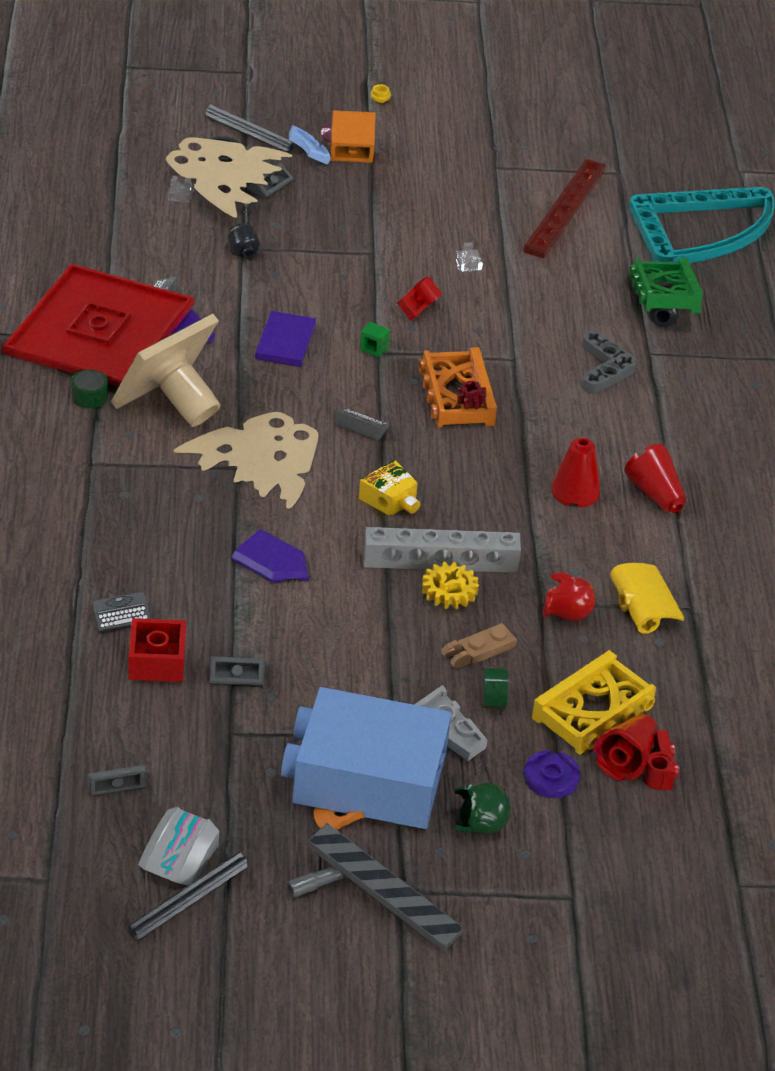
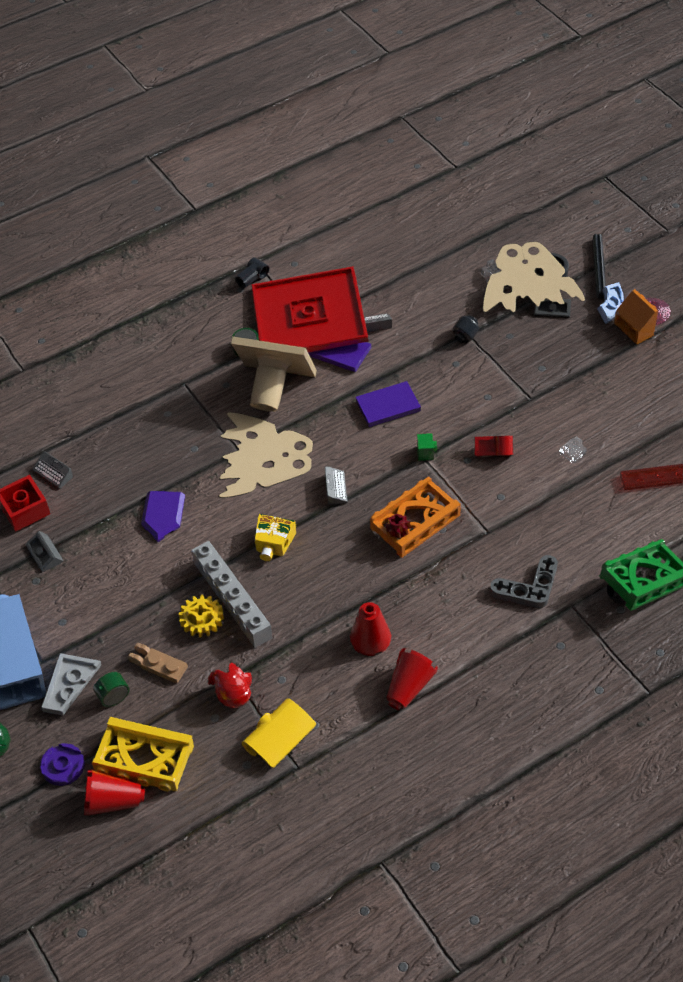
camera: 65 degrees right, 10 degrees up
(661, 768) = (112, 823): red plate -> none

